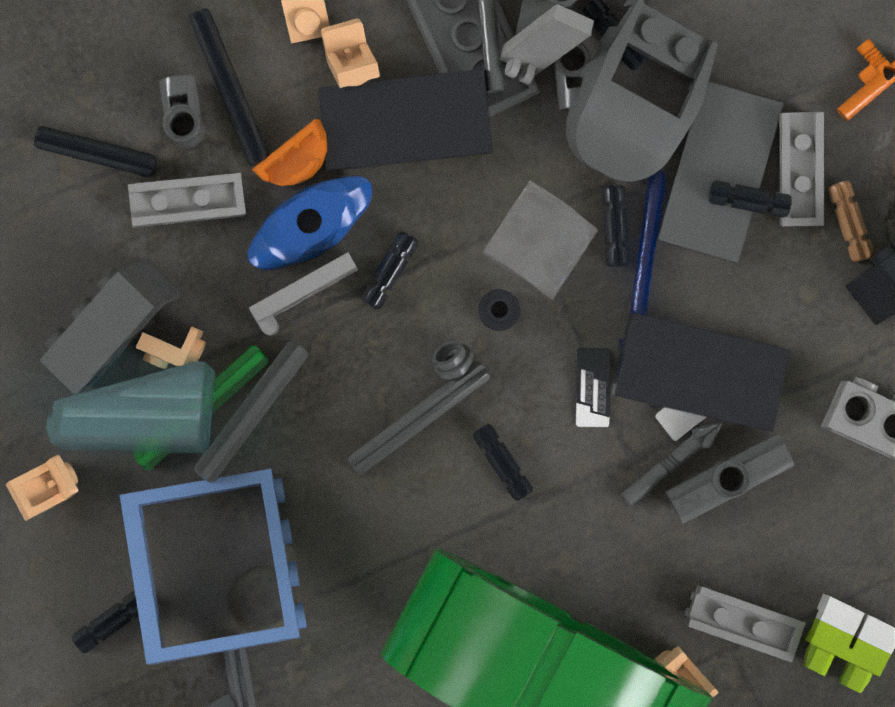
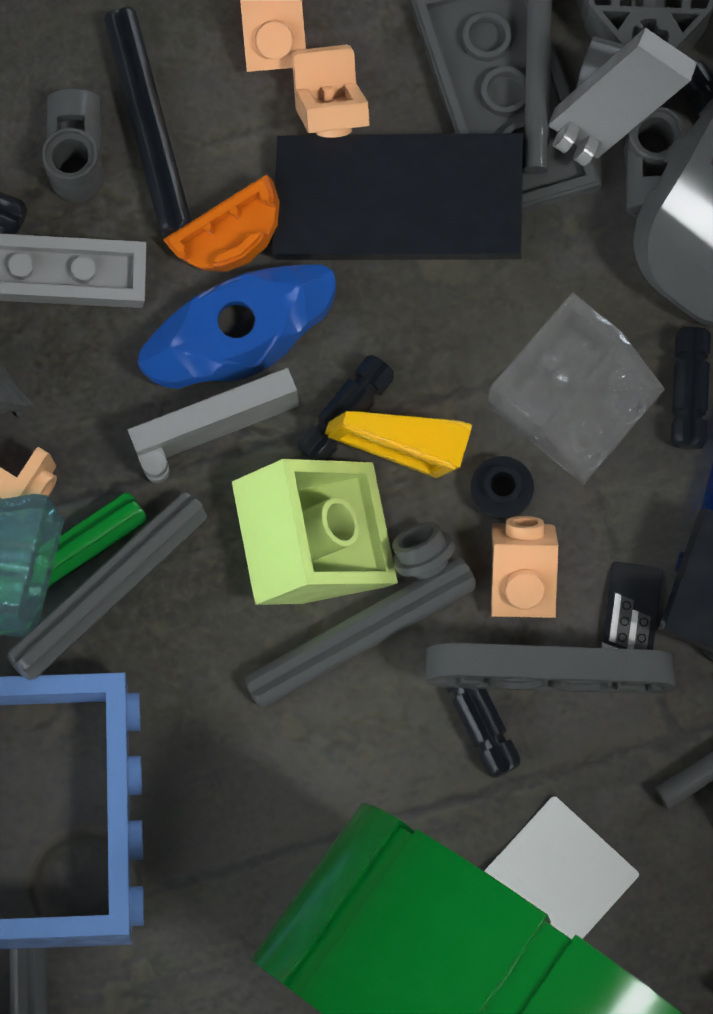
camera: 10 degrees right, 10 degrees down
(379, 356) = (313, 531): none -> yellowish green slope
(445, 290) = (414, 442): none -> yellow slope
(519, 361) = (524, 568): none -> light nougat bracket
(544, 428) = (550, 668): none -> dark grey beam
(564, 559) = (563, 869): none -> white sticker

